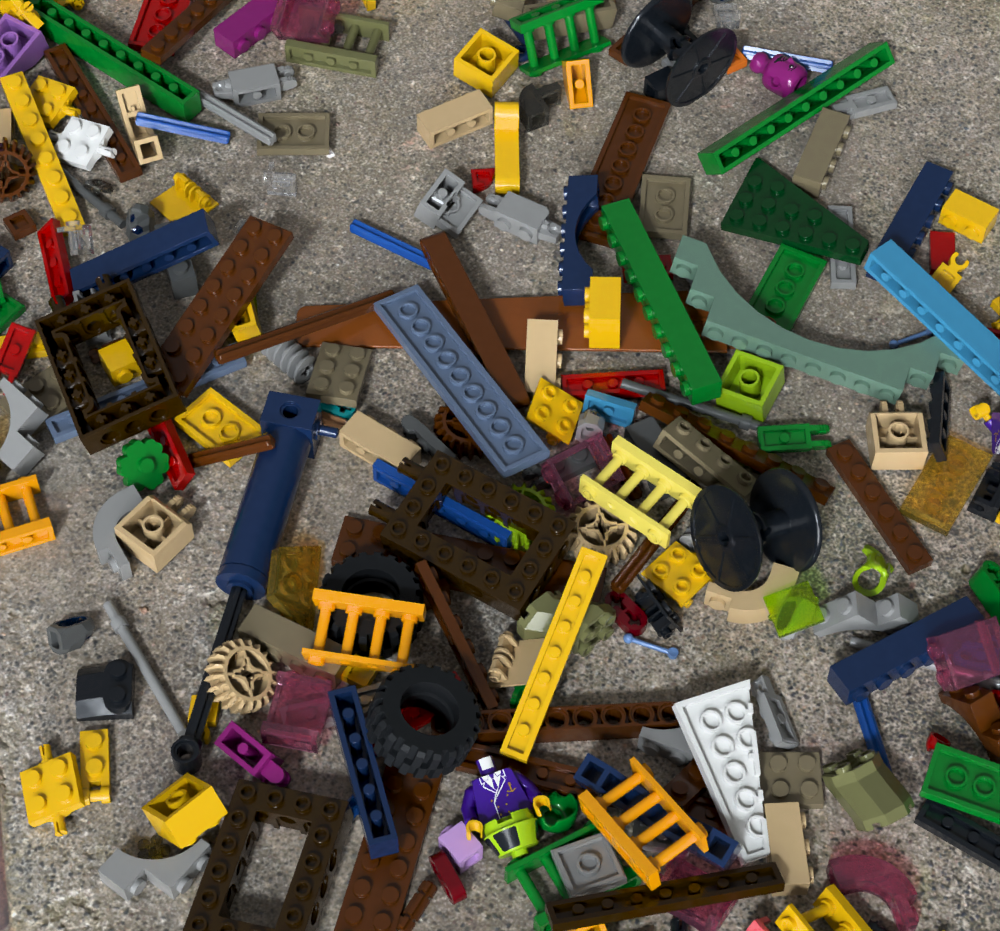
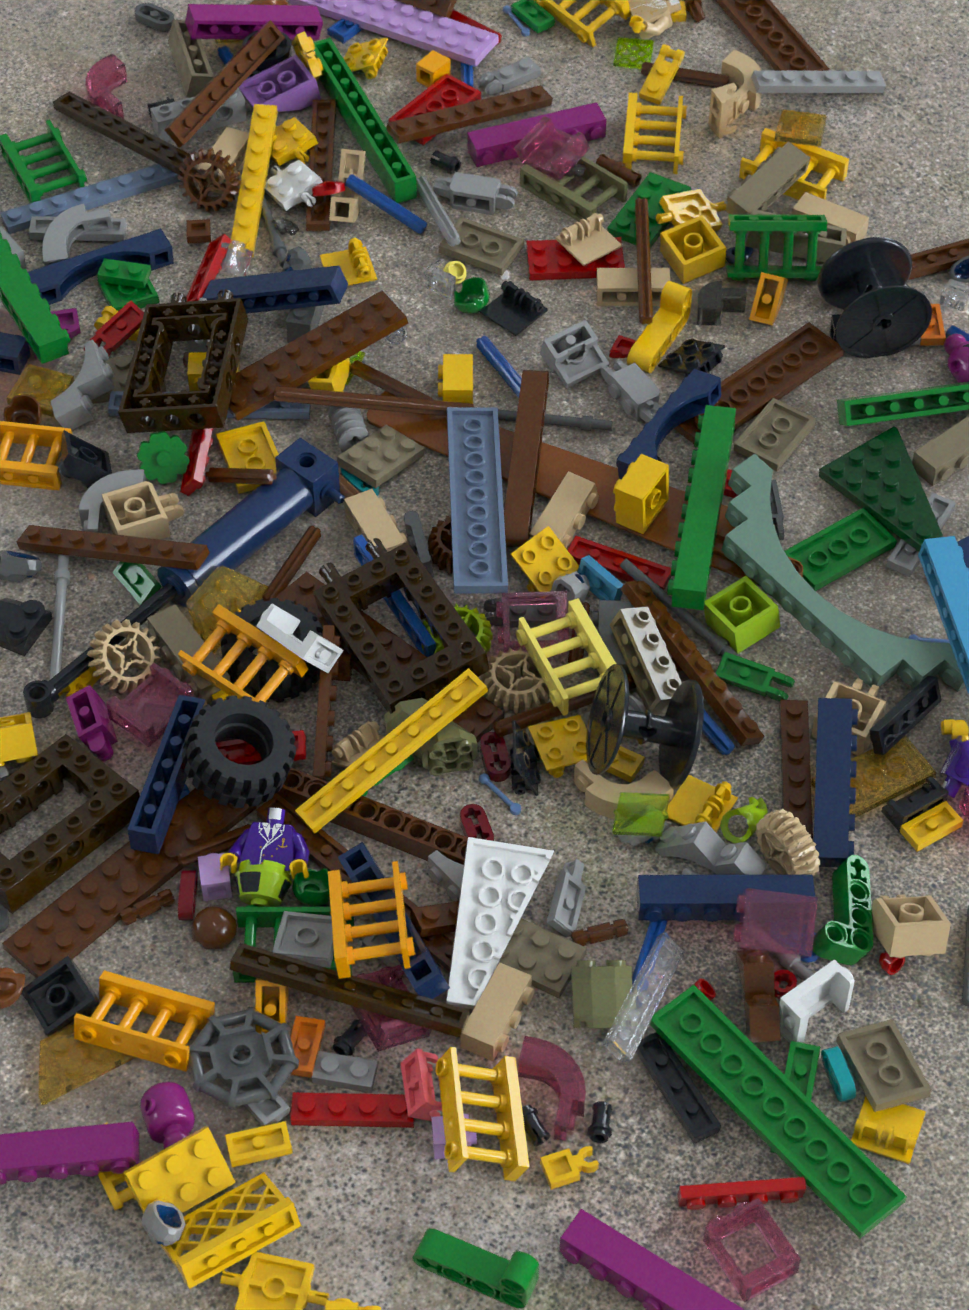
camera: 30 degrees right, 5 degrees down
(68, 501) = (82, 460): none -> black slope
(122, 133) = (328, 188): none -> red tile
(159, 575) = (113, 547): none -> reddish brown plate
(194, 594) = (137, 580): none -> plate
(207, 65) = (450, 164): none -> black pin
(287, 165) = (456, 269): none -> light yellow plate
(298, 301) = (385, 382): none -> reddish brown axle
(319, 185) = (473, 295): none -> green hair
(326, 515) = (292, 563): none -> reddish brown axle
(359, 272) = (457, 378): none -> yellow brick
(362, 182) = (514, 309): none -> black hinge
(368, 11) = (619, 169): none -> reddish brown pin
(382, 112) = (553, 262): none -> red plate
(391, 91) = (588, 239): none -> tan hinge
(418, 41) = (652, 189): none -> green plate
(436, 595) = (313, 649): none -> white panel
(440, 817) = (214, 845): none -> reddish brown axle
(455, 91) = (643, 261): none -> reddish brown axle
(458, 26) = (689, 205): none -> yellow plate
(490, 896) = (214, 928): none -> reddish brown hair
(496, 264) = (586, 423): none -> dark grey bar
(549, 164) = (694, 355): none -> black hinge
(656, 686) = (482, 827): none -> dark red beam
(819, 732) = (600, 932): none -> reddish brown axle
(830, 575) = (701, 802): none -> yellow hinge
(907, 776) = (643, 998): none -> clear tile
(926, 579) = (787, 844): none -> tan gear
(928, 505) = (832, 780): none -> dark blue brick
(937, 909) = (600, 1128): none -> black pin

